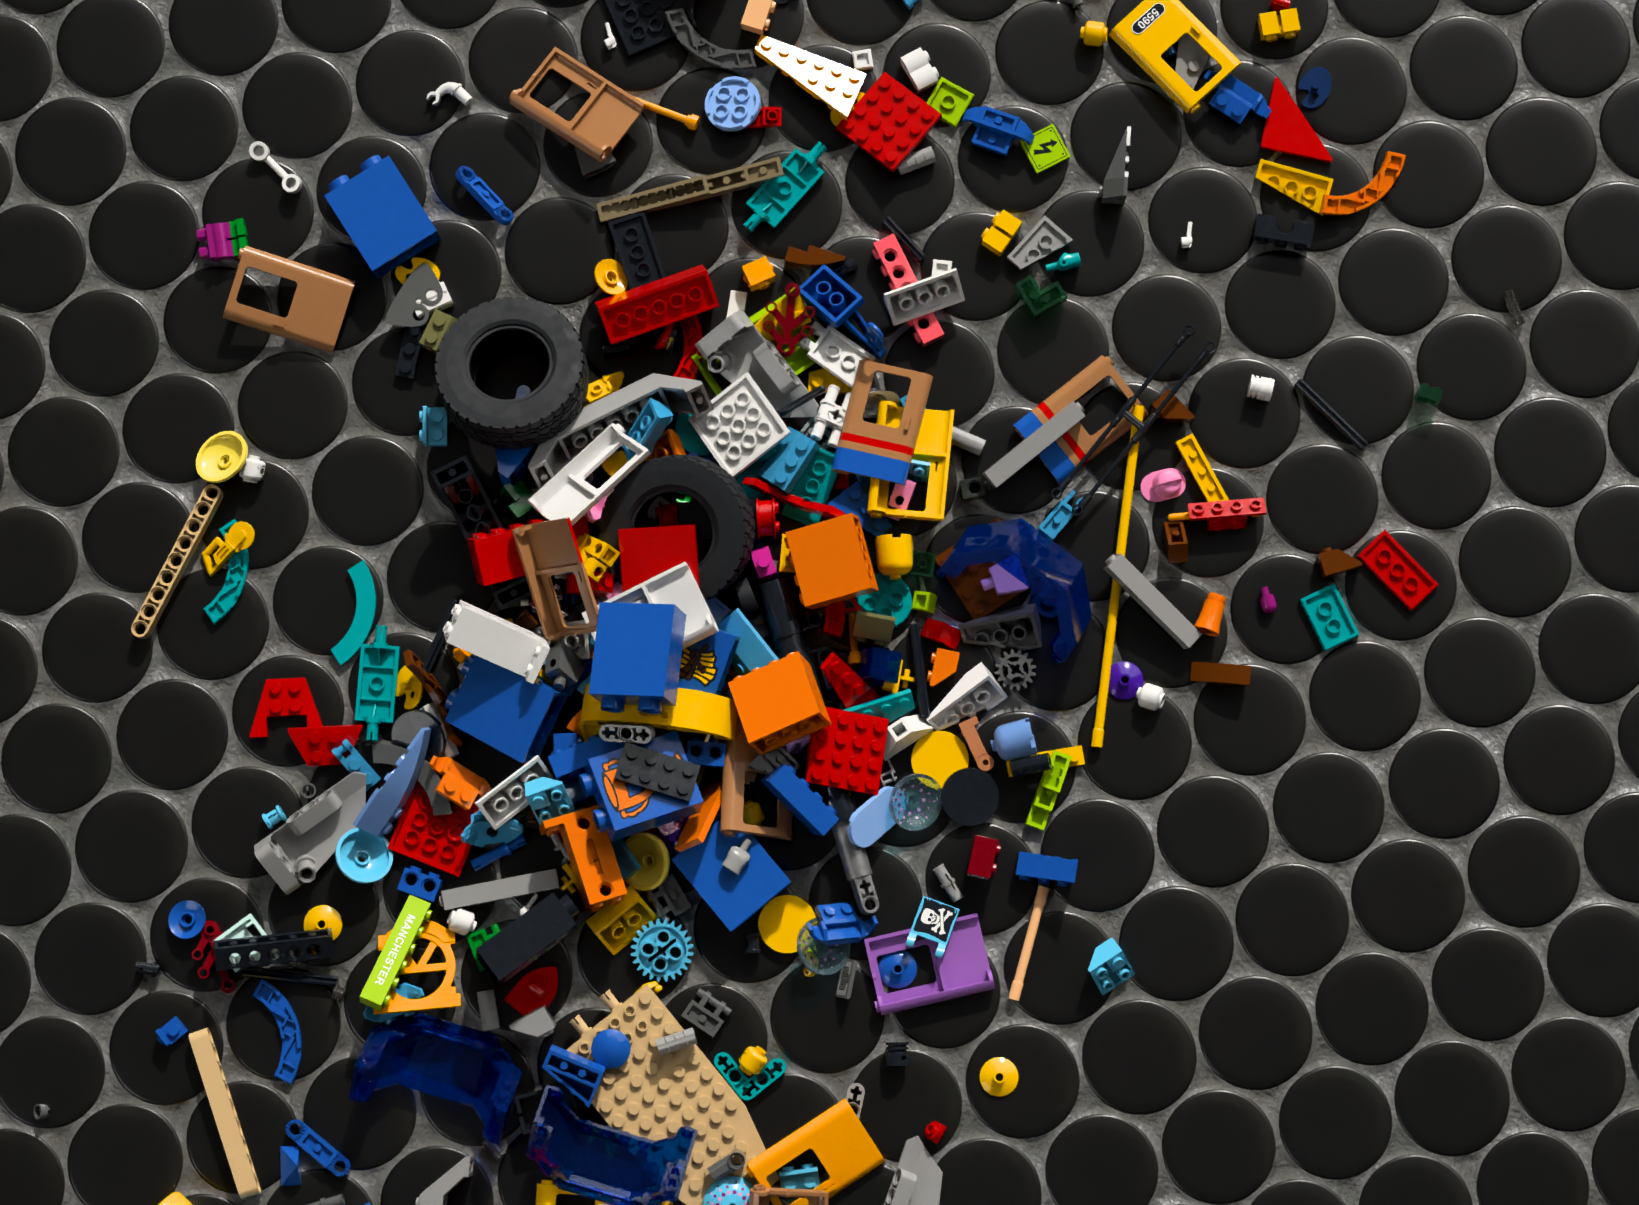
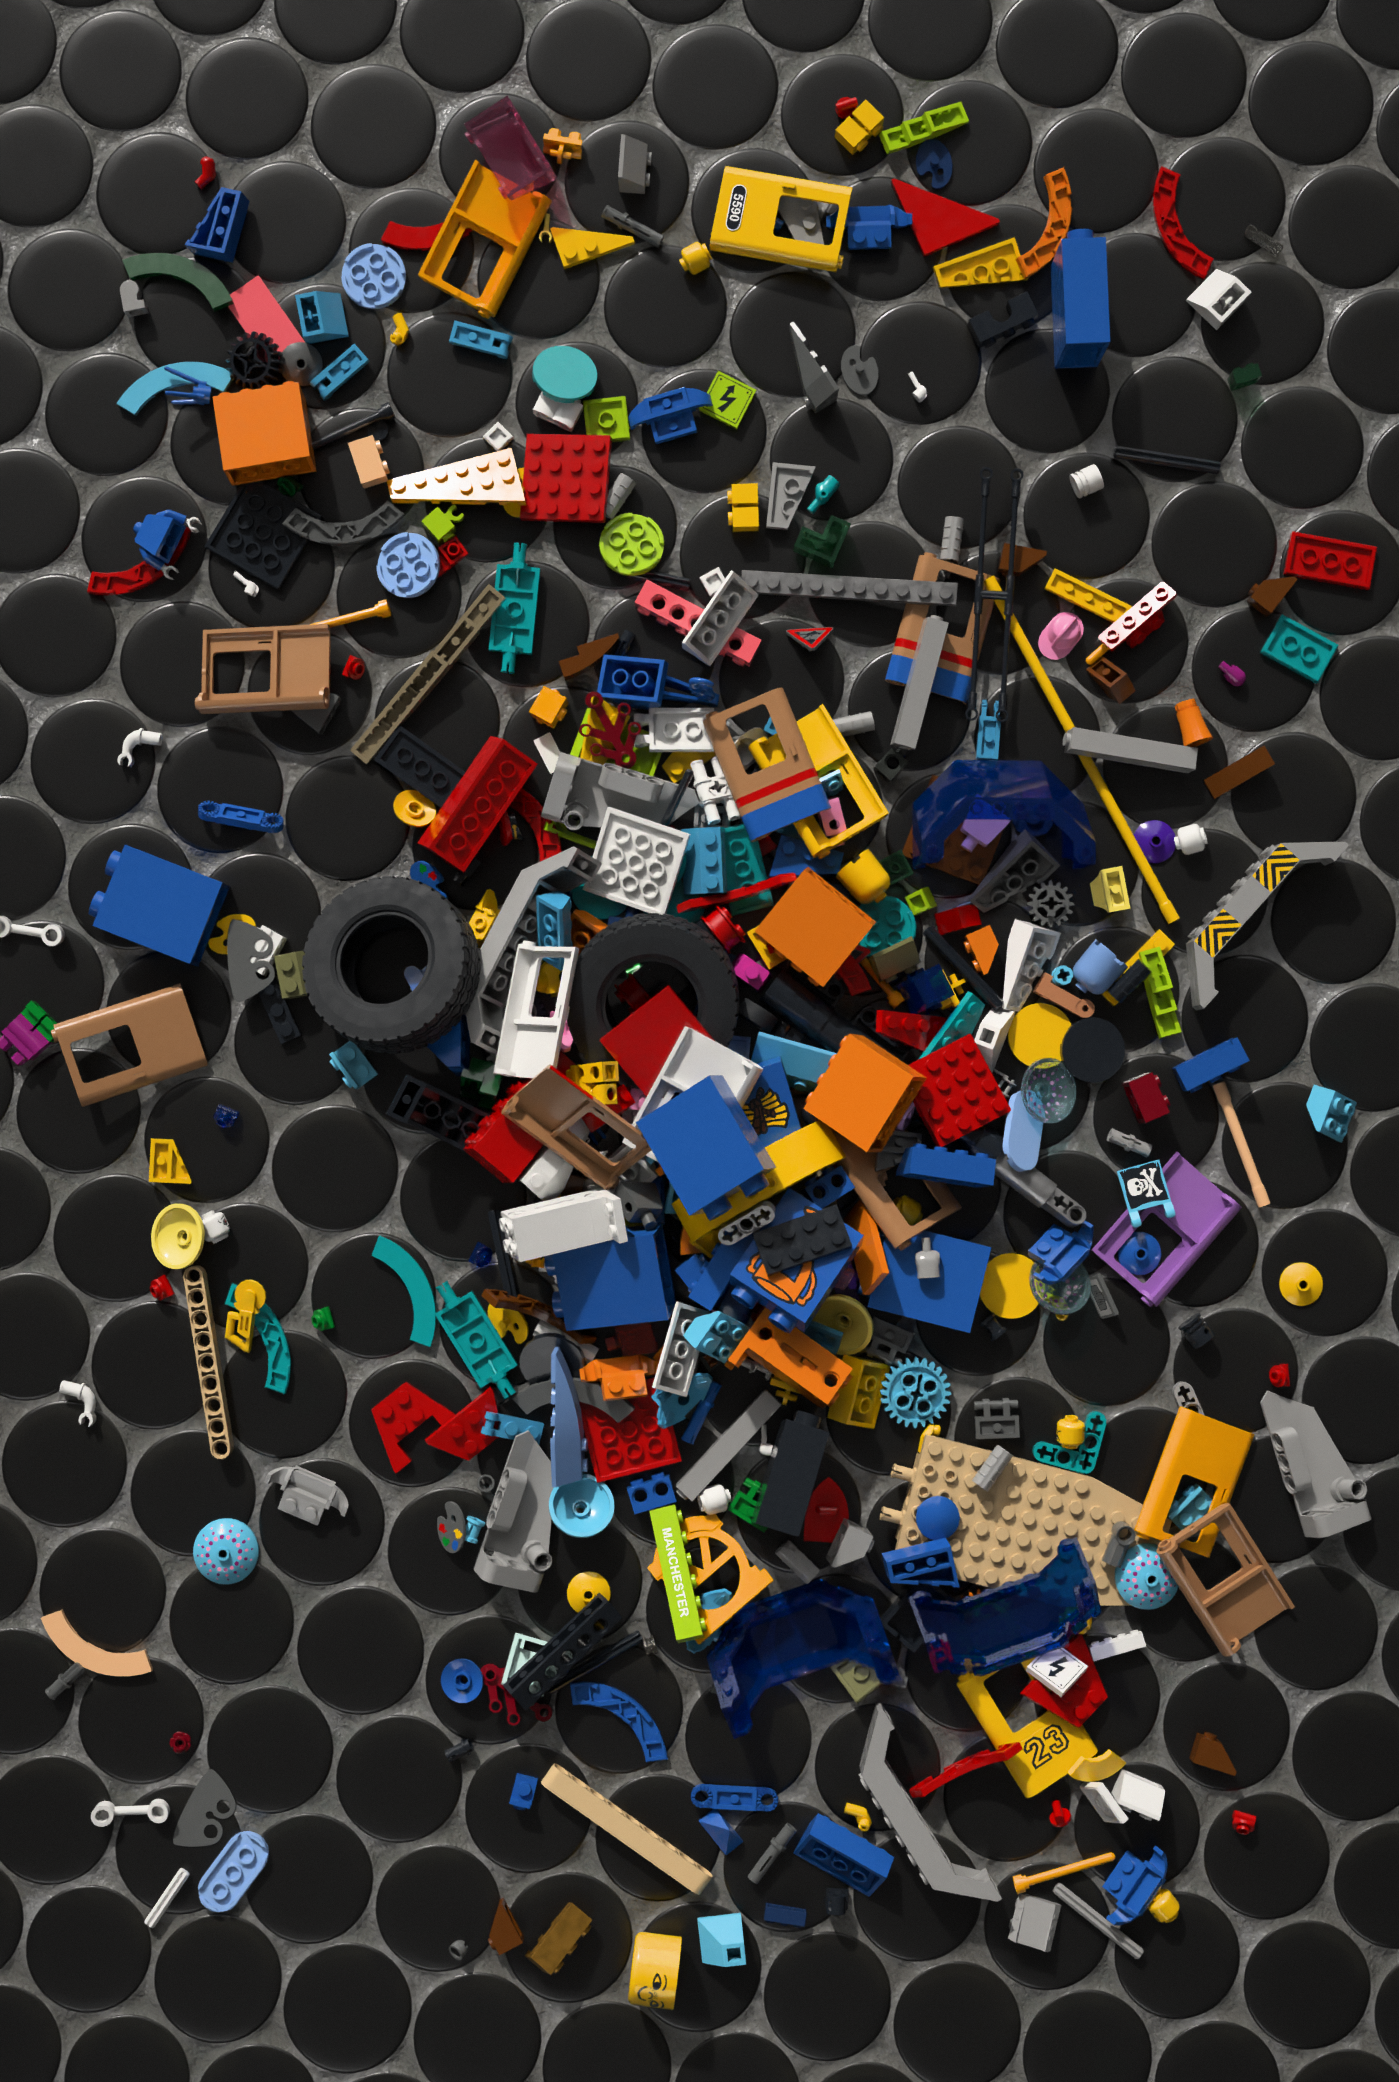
camera: 35 degrees left, 5 degrees up
(74, 523) = (83, 1393): none -> white piece
(84, 1121) = (504, 1931): none -> reddish brown slope
(102, 707) = (236, 1540): none -> medium azure dish
(118, 1156) = (560, 1939): none -> pearl gold wedge
(176, 705) = (307, 1493): none -> light grey plate
(182, 486) = (161, 1288): none -> red plate
(252, 400) = (166, 1163): none -> yellow wing
(258, 808) = (452, 1532): none -> dark grey piece
(279, 590) = (322, 1319): none -> green plate
(317, 397) = (225, 1116): none -> clear blue plate
(425, 626) = (481, 1255): none -> clear blue plate
(468, 1126) = (857, 1679): none -> olive tile
(489, 763) = (633, 1339): none -> clear red torso
(515, 600) = (547, 1171): none -> white wedge
(586, 331) = (427, 874): none -> blue piece
(641, 149) = (354, 668): none -> red plate
(776, 92) = (440, 524): none -> lime brick
(901, 201) = (631, 544): none -> lime tile
(941, 48) = (564, 374): none -> teal tile
(980, 357) = (811, 637): none -> piece
(981, 729) = (1064, 969): none -> medium azure bush
(1035, 343) = (852, 588): none -> flat silver plate
(1066, 691) = (1110, 890): none -> light yellow slope
(1133, 360) = (951, 539): none -> light grey axle
(1154, 200) = (861, 377): none -> dark grey piece
(1158, 767) = (1239, 906): none -> light grey slope
(1328, 58) = (928, 126): none -> lime slope
(1344, 255) = (1080, 300): none -> blue brick
(1450, 325) = (1218, 297): none -> white slope
(1452, 251) = (1170, 229): none -> red tile

